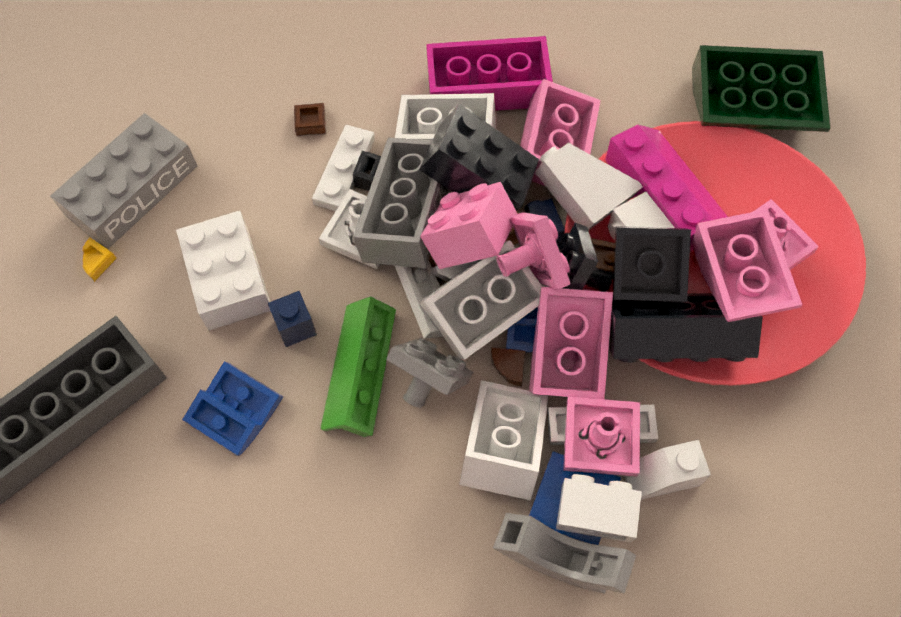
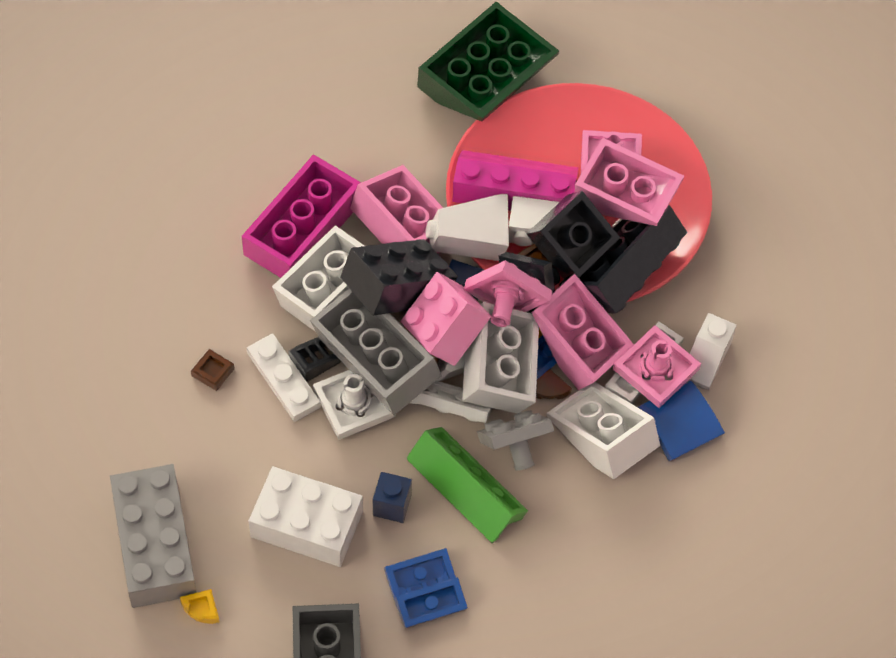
camera: 55 degrees left, 5 degrees down
(563, 557) = (702, 461): light grey arch -> none
(599, 508) = (705, 404): white brick -> none

